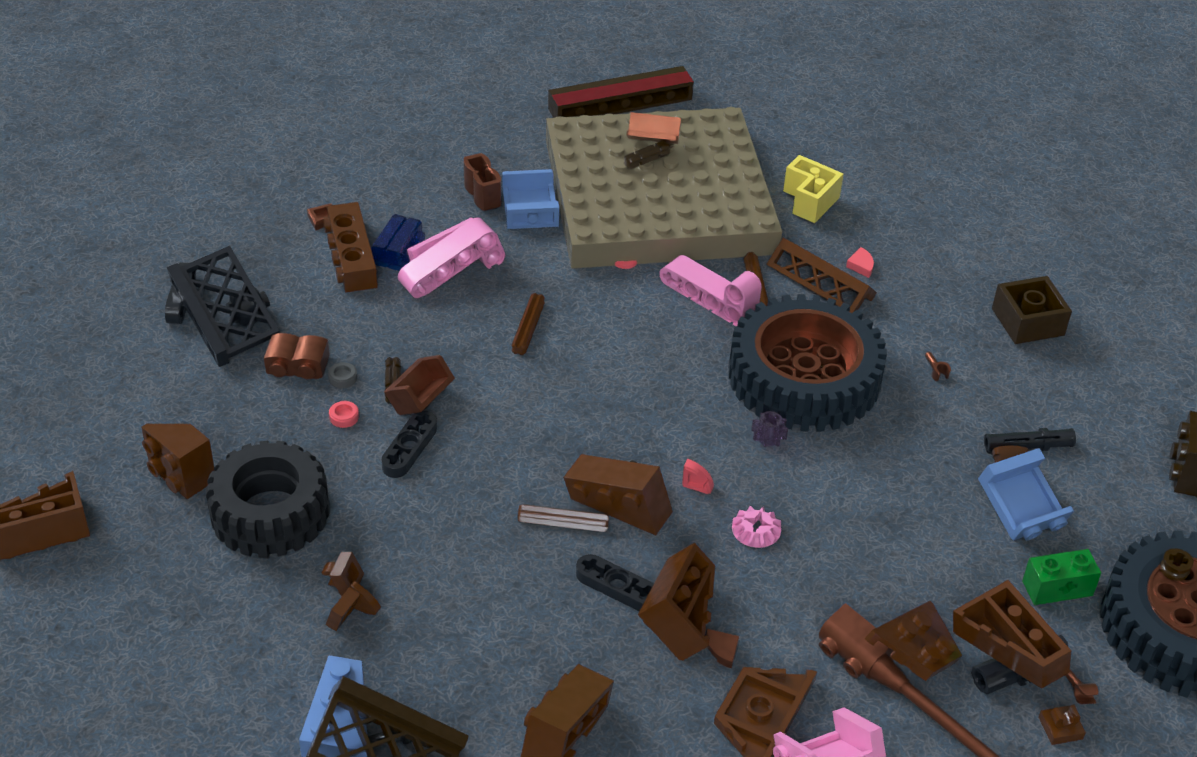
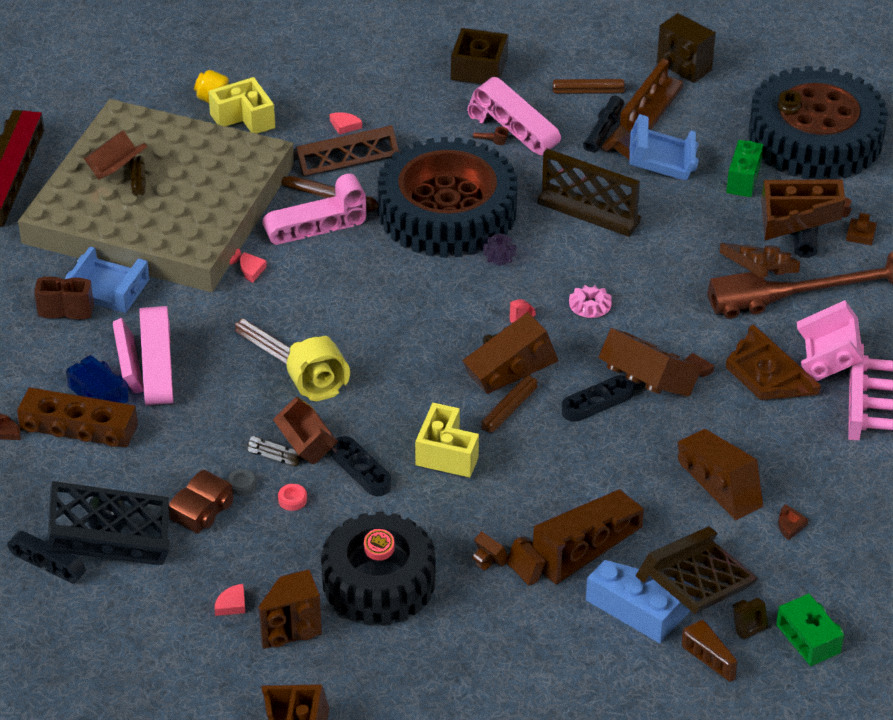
camera: 60 degrees left, 0 degrees up
(198, 420) = (231, 601): none -> coral tile
(268, 475) = (379, 544): none -> tile
(402, 636) = (585, 533): none -> reddish brown wedge
(465, 479) = (444, 445): none -> light yellow brick
(501, 361) = (317, 368): none -> light yellow brick
(618, 277) = (252, 266): none -> coral tile
(826, 156) = (209, 81): none -> yellow head
(894, 465) = (586, 206): none -> dark brown fence
(966, 367) = (514, 113): none -> bright pink beam
(1080, 409) = (587, 86): none -> reddish brown axle
(1095, 466) = (652, 97): none -> reddish brown fence

